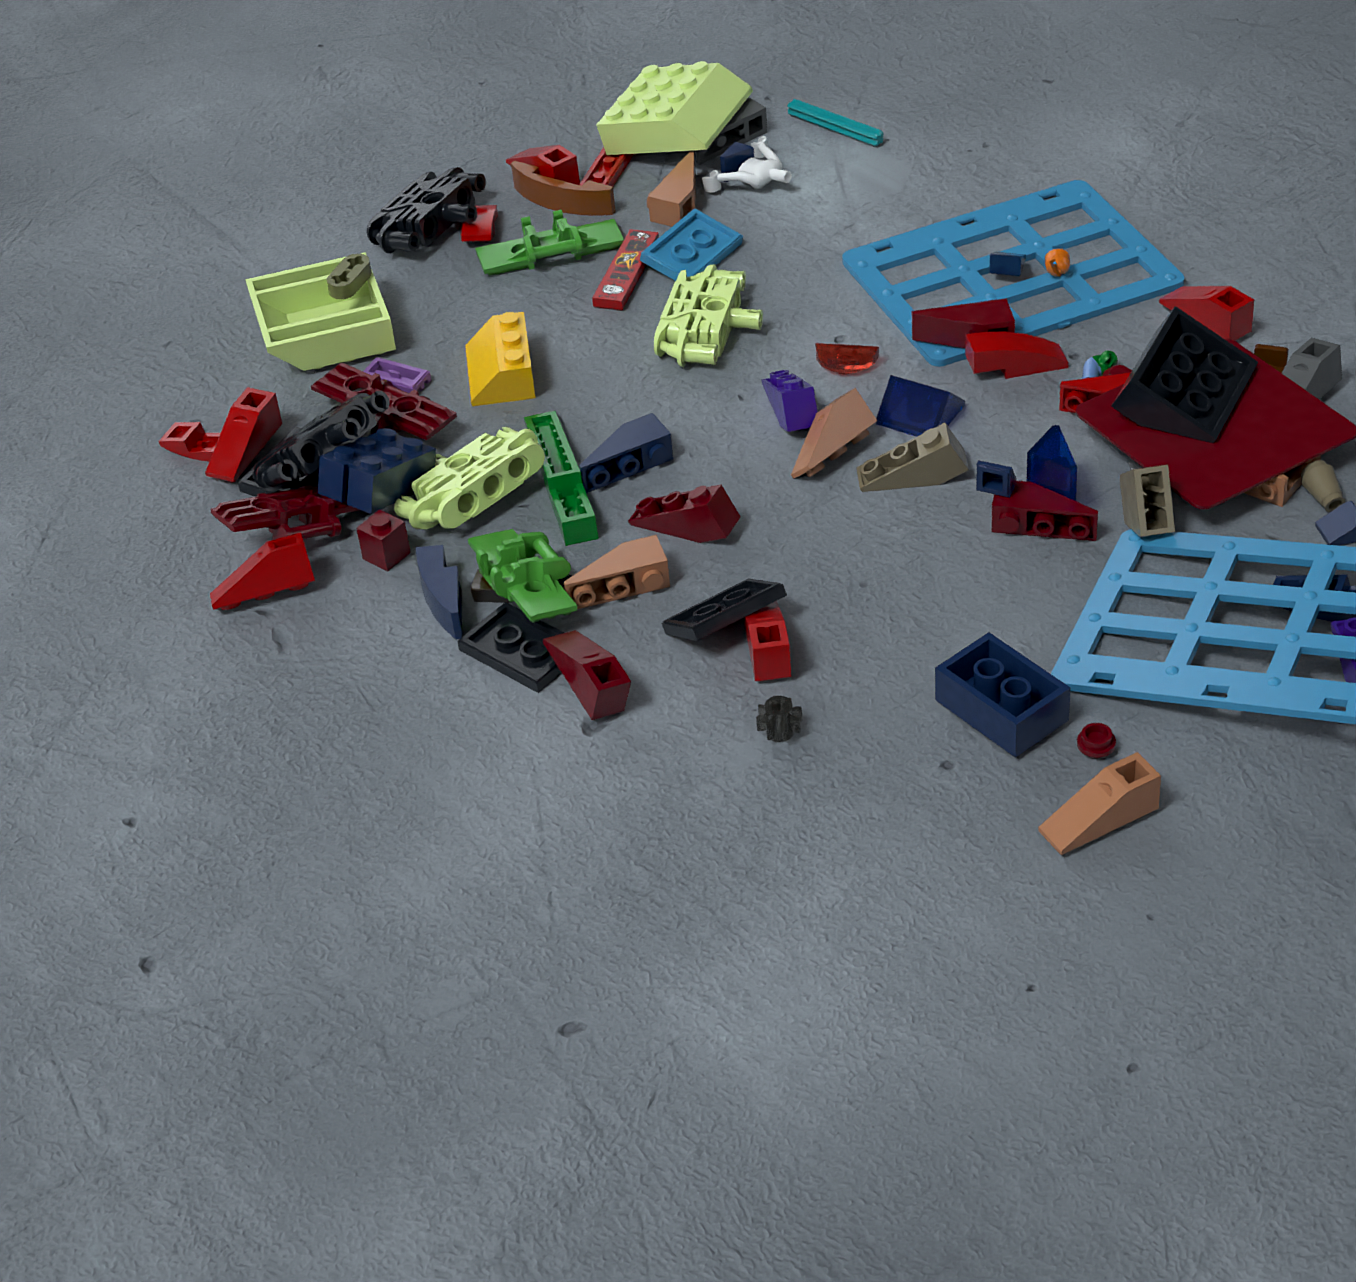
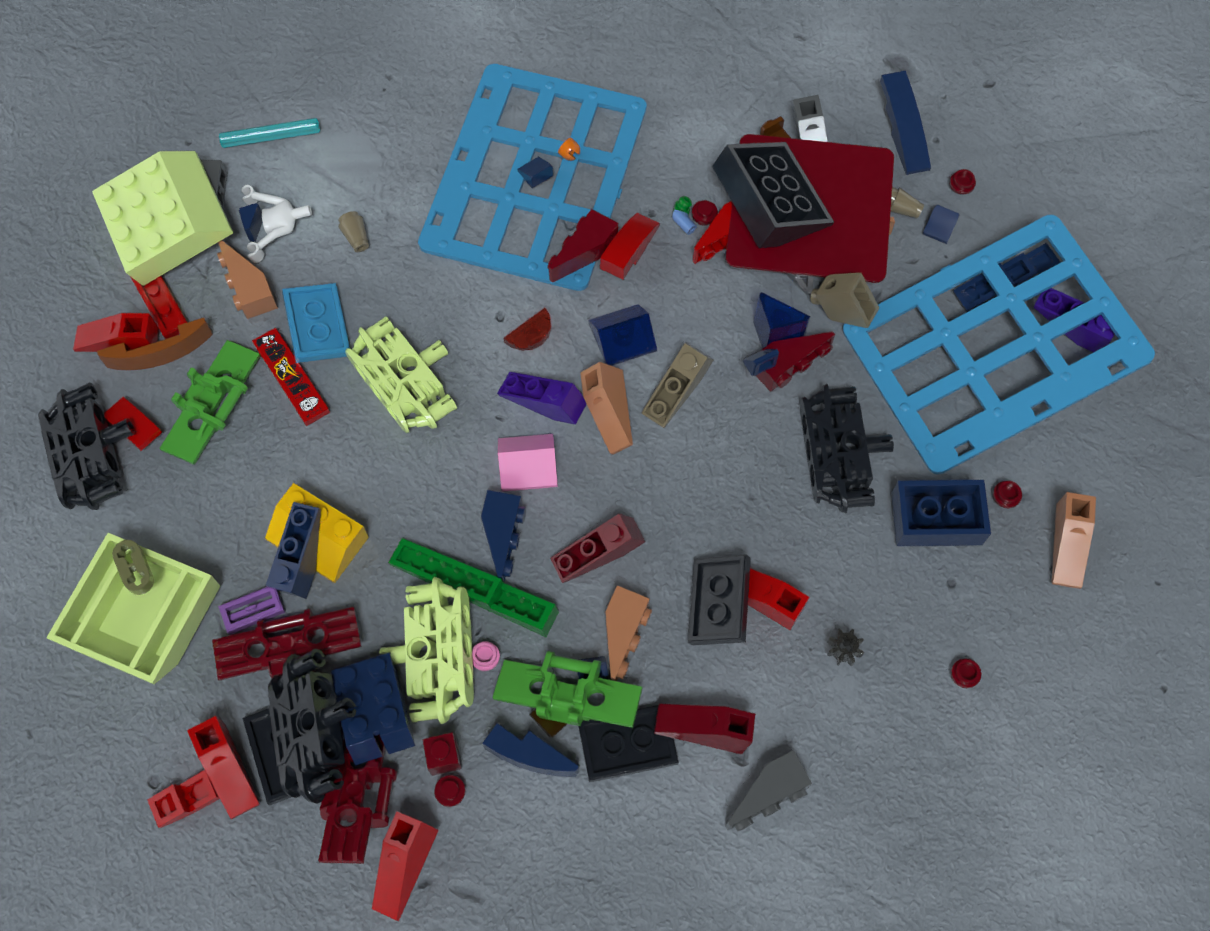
camera: 55 degrees left, 25 degrees up
(358, 571) = (449, 791): none -> dark red plate
(459, 358) = (297, 552): none -> dark blue slope
(502, 515) = (485, 656): none -> bright pink plate
(573, 750) = (777, 782): none -> dark grey slope
(714, 431) = (527, 462): none -> bright pink slope
(805, 212) = (354, 230): none -> dark tan cone
(857, 820) = (966, 673): none -> dark red plate
(986, 595) = (839, 465): none -> black piece
(1216, 307) = (695, 115): red slope -> none

